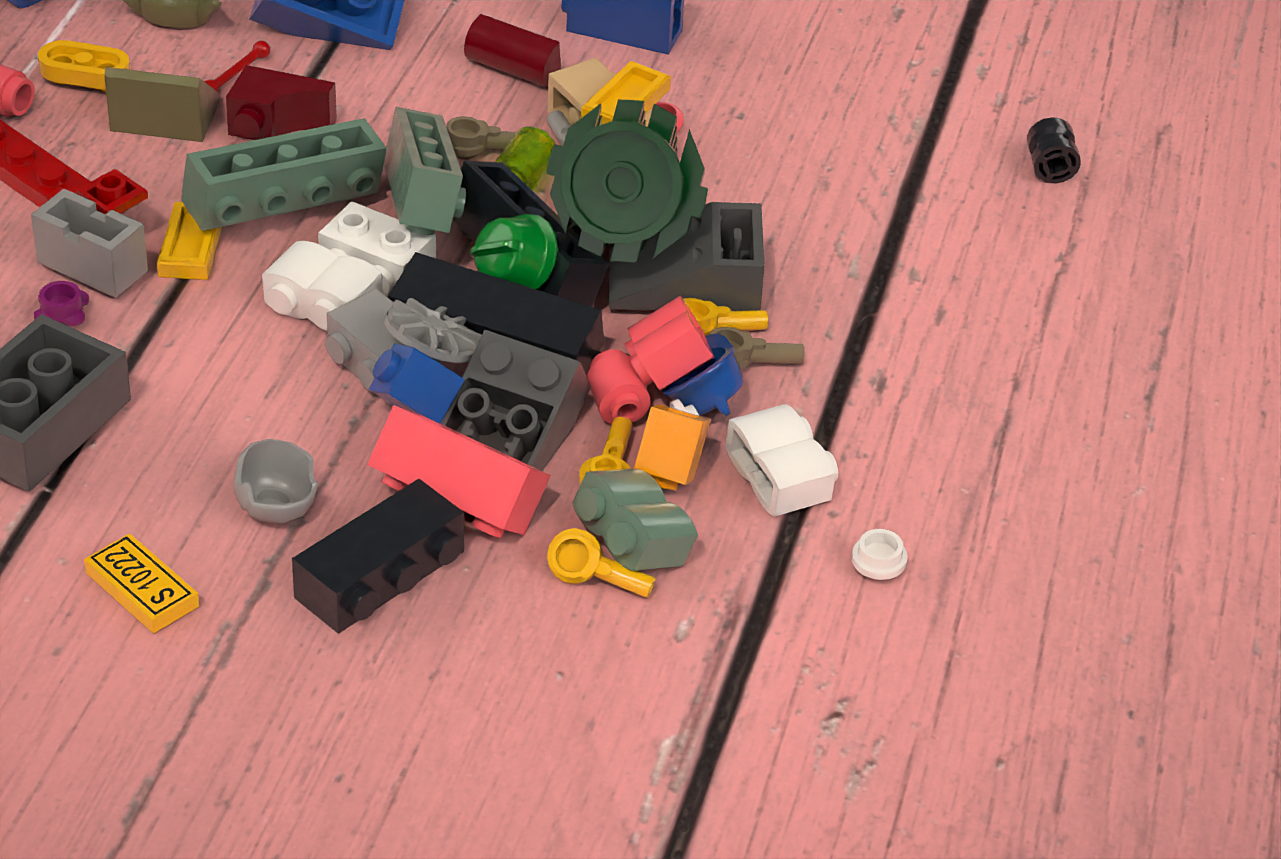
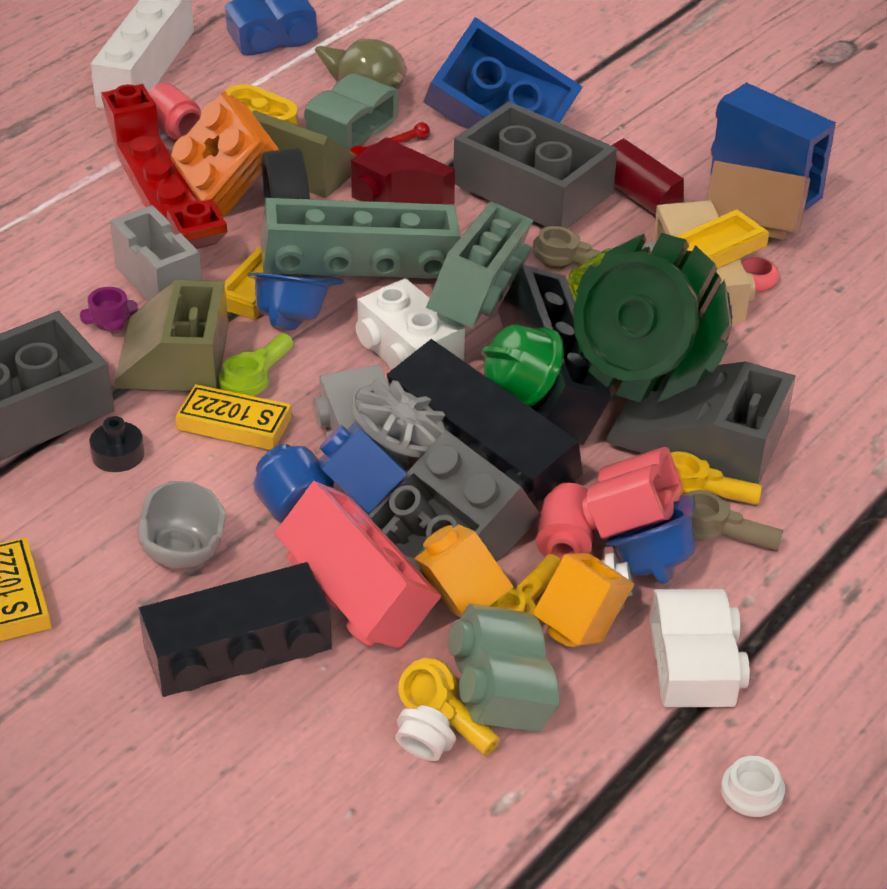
camera: 25 degrees right, 0 degrees up
(65, 118) = (222, 152): none -> orange brick
(155, 430) = (116, 445): none -> black tile
(158, 313) = (176, 339): none -> olive slope
(170, 134) = (284, 175): none -> black tyre
(183, 42) = (352, 110): none -> sand green brick
(240, 330) = (248, 370): none -> lime plate
(245, 246) = (291, 297): none -> blue piece
(251, 375) = (234, 417): none -> yellow tile
(315, 280) = (337, 342): white brick -> none
(351, 418) = (285, 476): none -> blue head
(406, 60) = (534, 166): none -> dark grey brick
(560, 447) = (462, 569): none -> light orange brick
(593, 591) = (424, 732): none -> white plate
(640, 39) = (763, 195): none -> medium nougat brick

